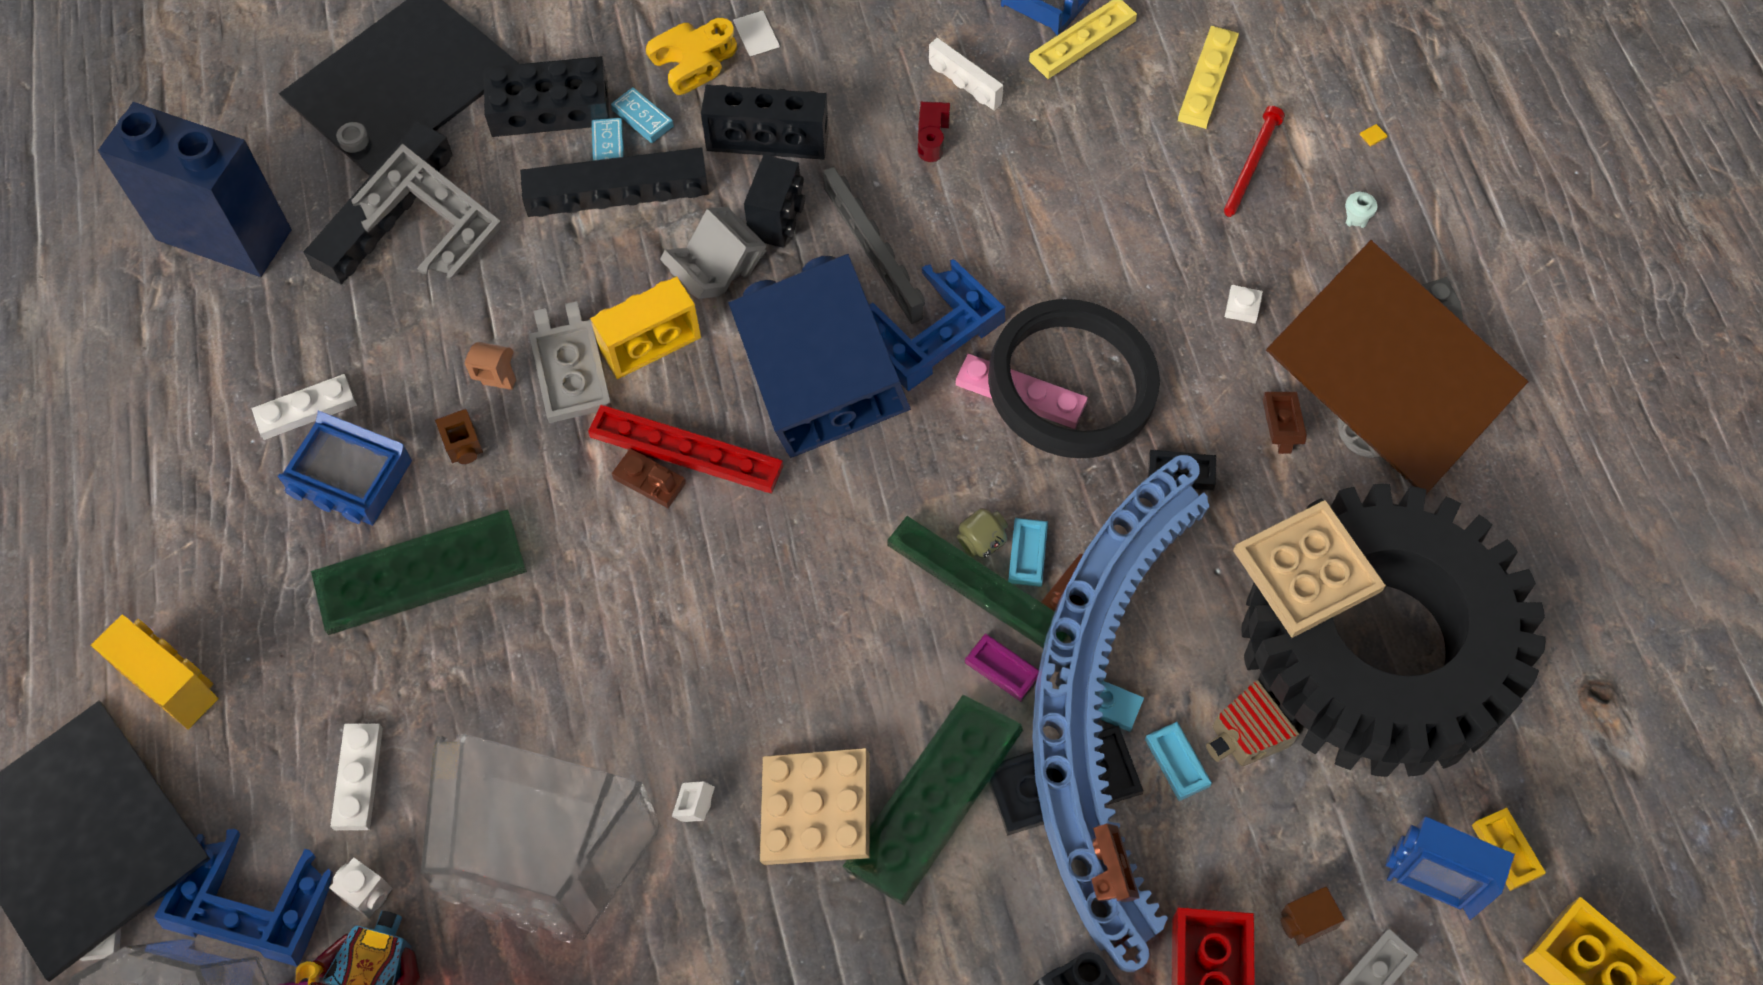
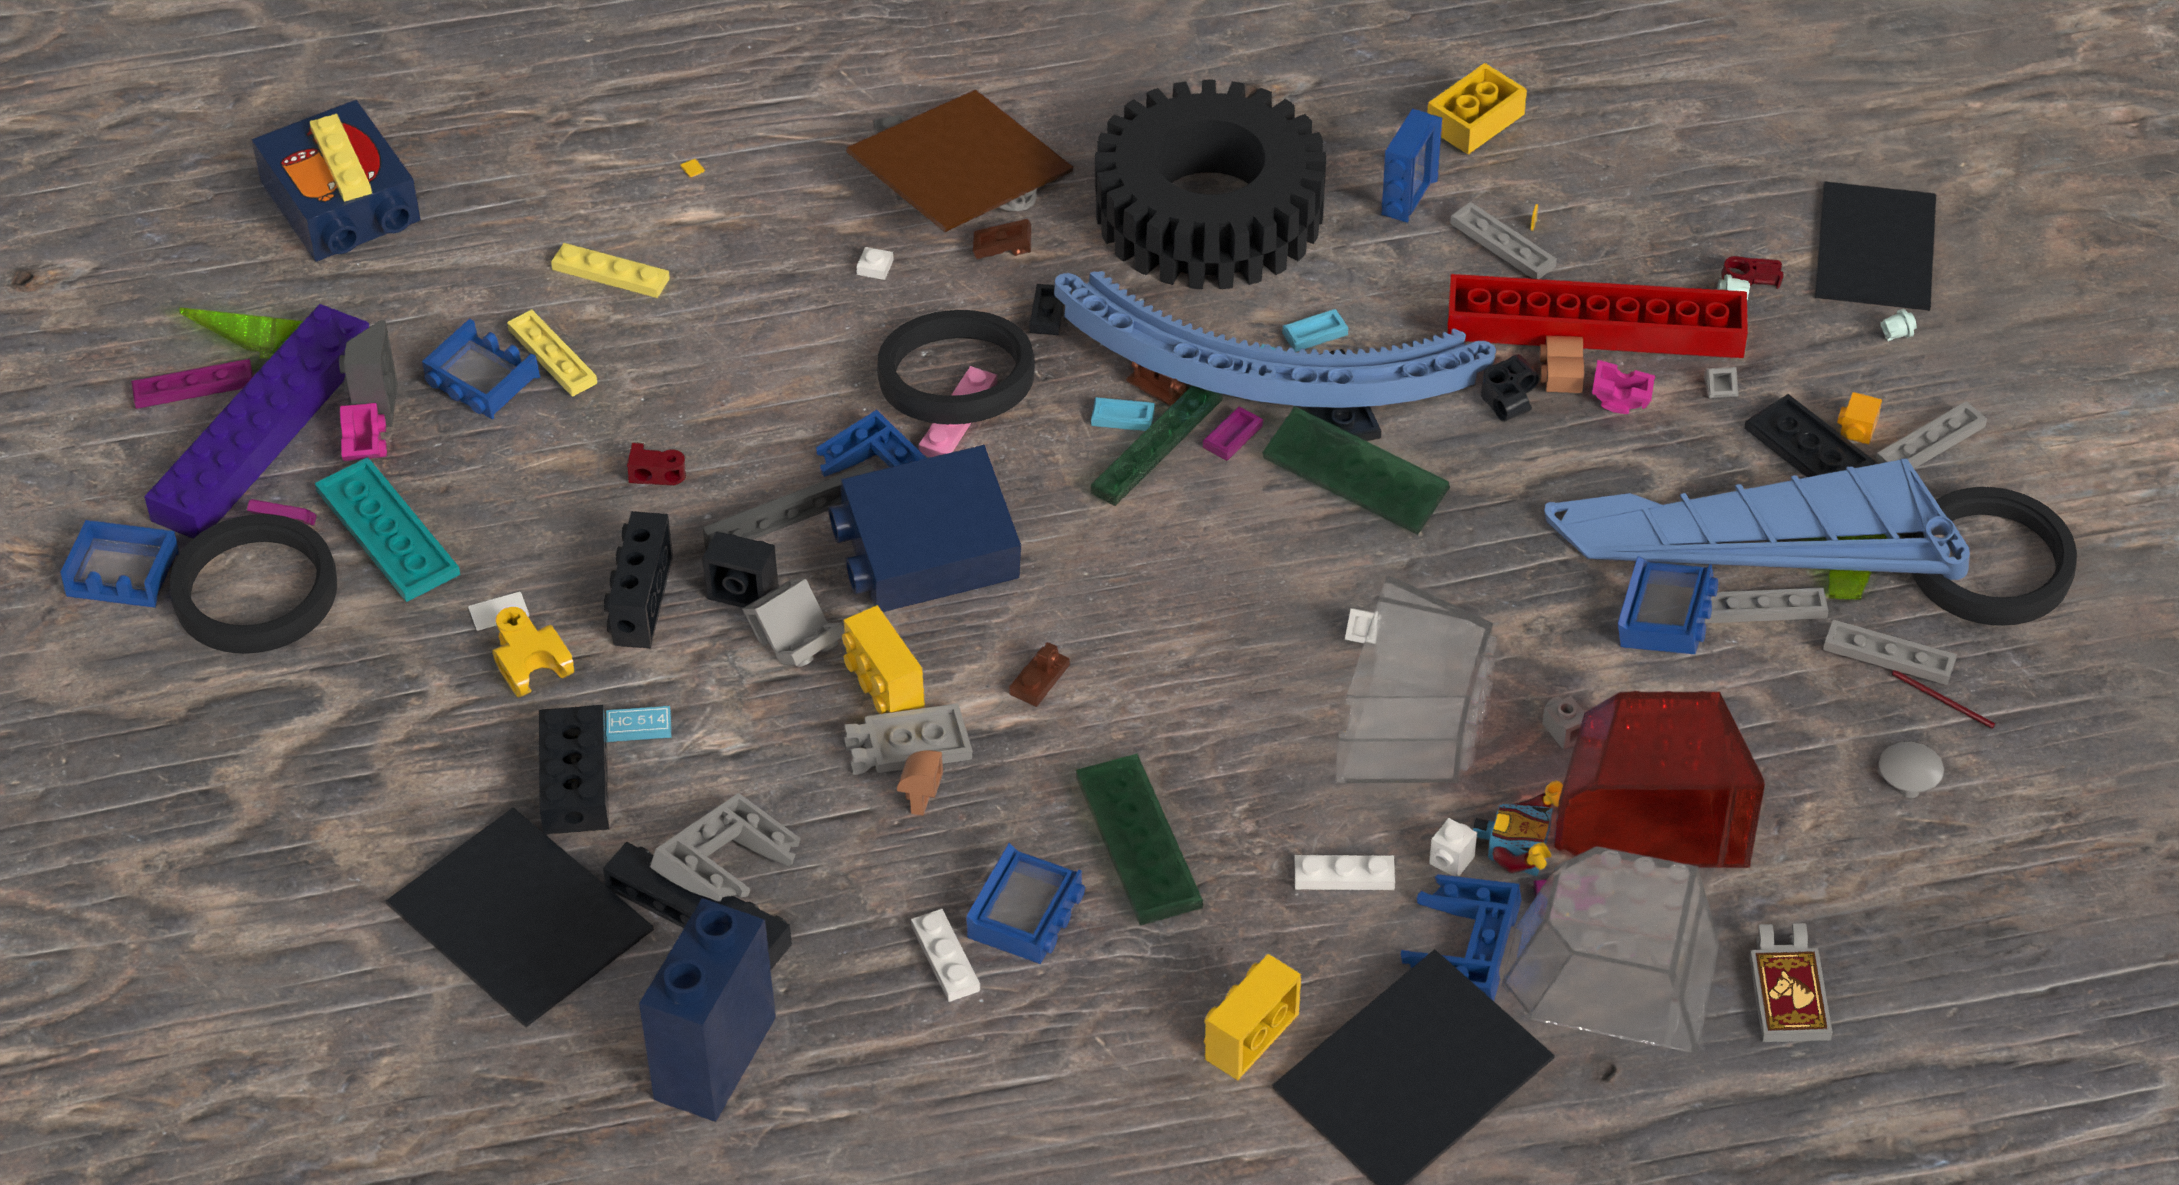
camera: 90 degrees left, 15 degrees down
(352, 137) = (602, 942): light grey tile -> none
(459, 437) = (993, 813): reddish brown brick -> none
(614, 182) = (693, 711): black brick -> none
(642, 115) = (607, 691): medium azure tile -> none
(686, 449) = (1011, 646): red plate -> none
(815, 807) = (1364, 545): tan plate -> none
(965, 74) = (588, 438): white plate -> none
(982, 533) = (1107, 437): olive head -> none
(1118, 879) = (1431, 341): copper hinge -> none
(1251, 728) = (1287, 280): dark tan torso -> none
(1273, 117) = (668, 227): red bar -> none
(1308, 568) = (1176, 198): tan plate -> none
(1311, 916) = (1443, 256): reddish brown brick -> none
(1359, 208) = (783, 176): light aqua hose -> none
(1504, 833) = (1372, 151): yellow plate -> none

